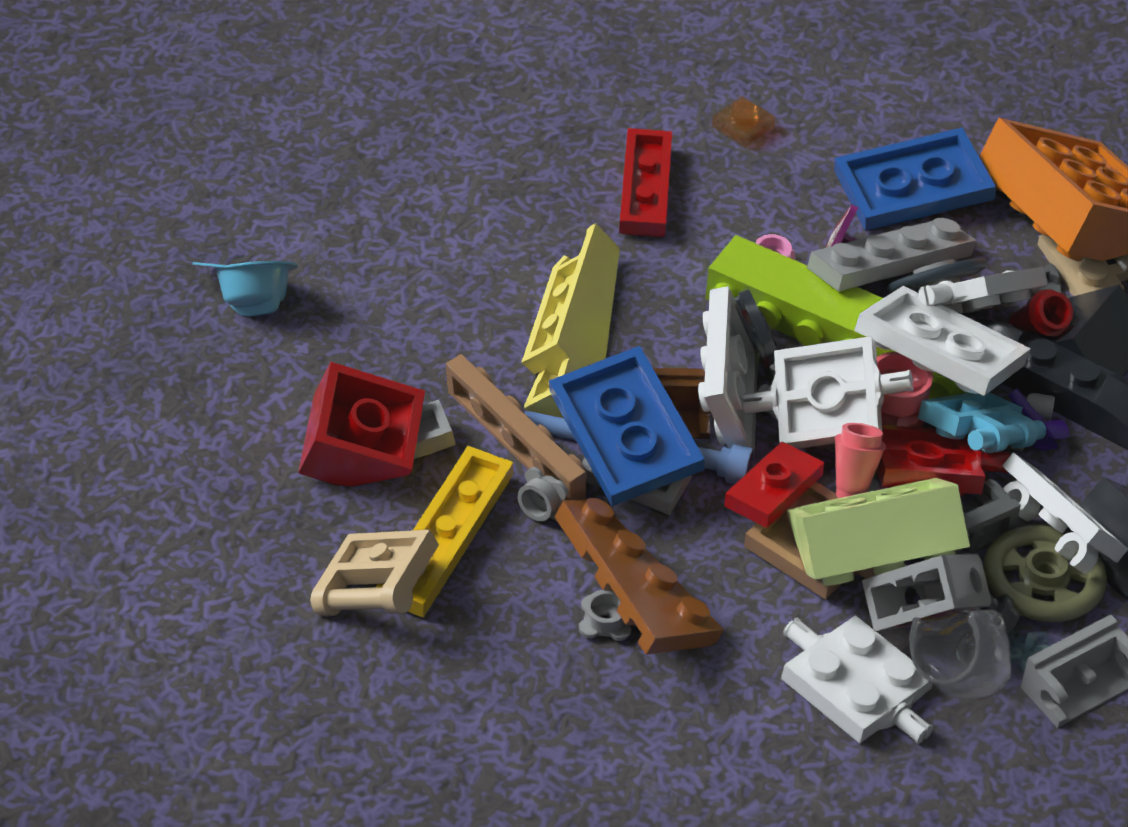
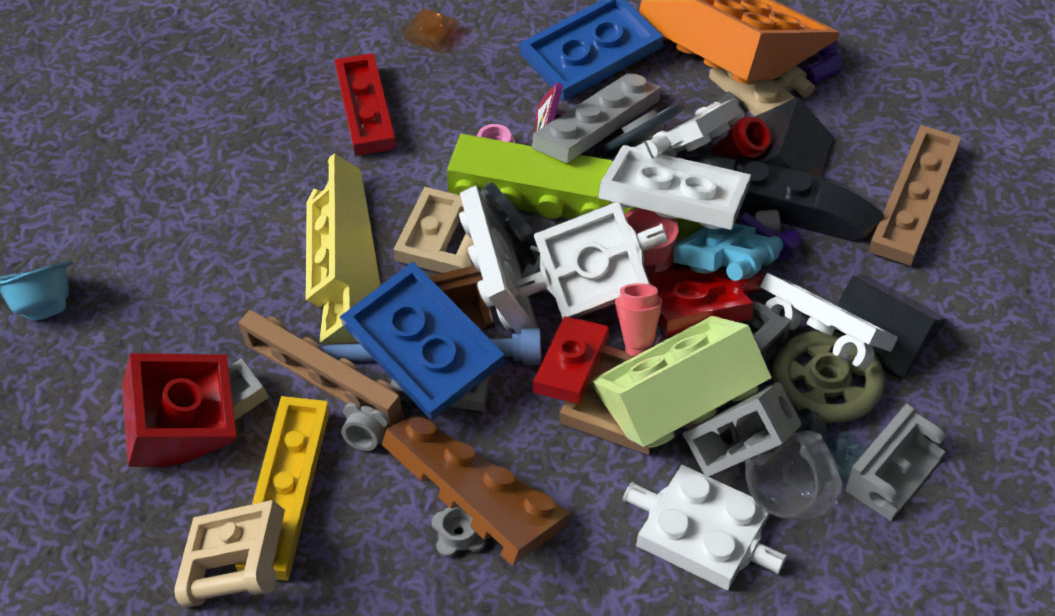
camera: 15 degrees left, 5 degrees up
(672, 328) = (431, 231): none -> tan plate

